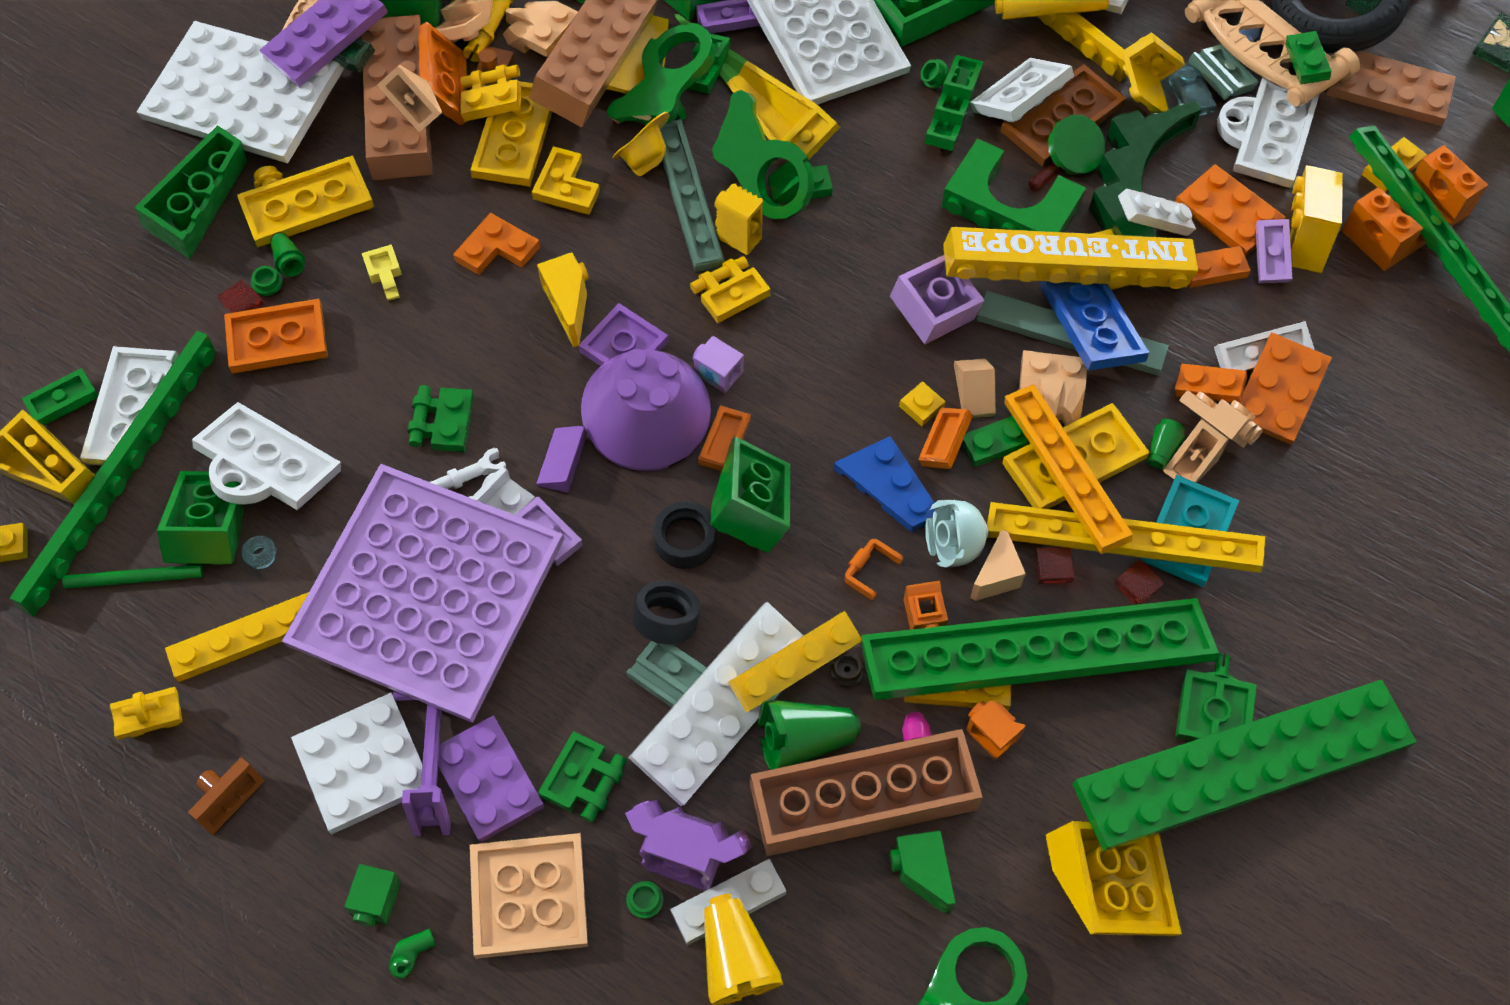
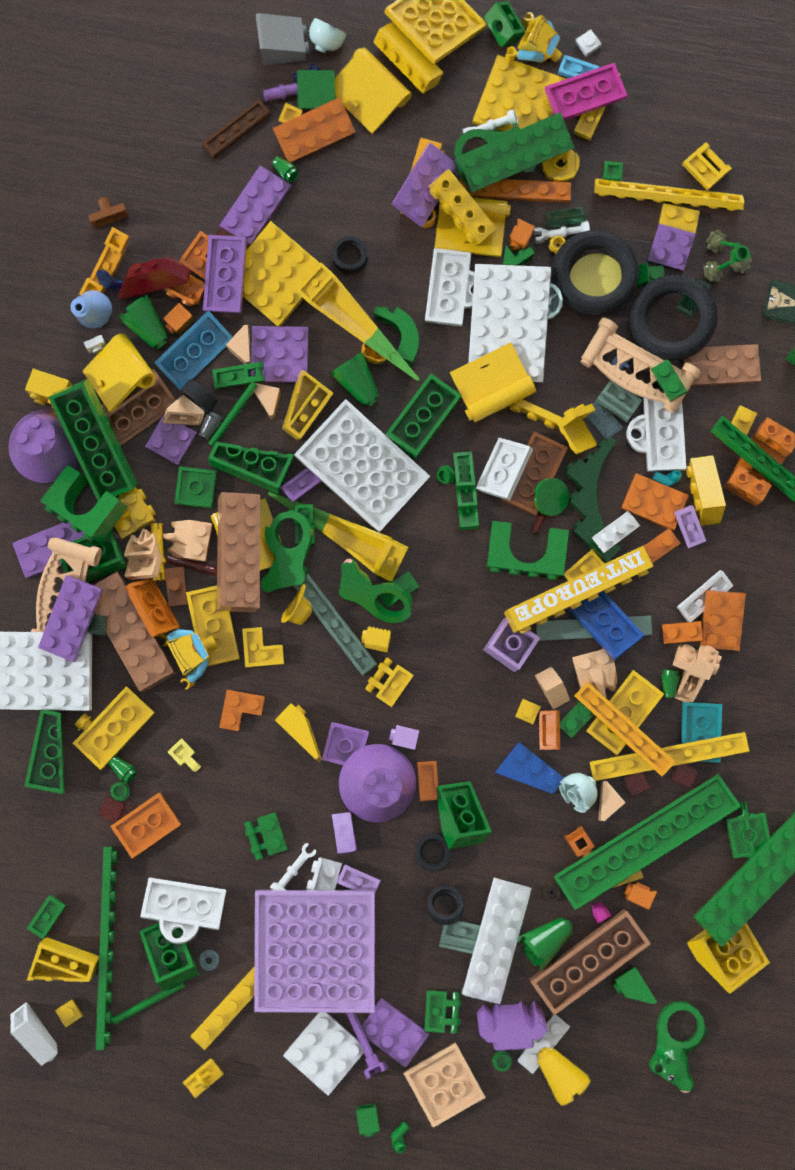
camera: 20 degrees left, 20 degrees up
(126, 387) = (83, 899): white wing -> none
(224, 794) = (265, 1100): dark orange tile -> none
(411, 96) = (152, 647): light nougat slope -> none
(462, 144) = (189, 653): none -> torso
(493, 99) = (189, 613): yellow plate -> none
(519, 52) = (192, 565): none -> clear red bar
(795, 661) = (525, 904): yellow plate -> none
(861, 558) = (532, 823): orange piece -> none
(1264, 190) = (669, 479): none -> teal arm

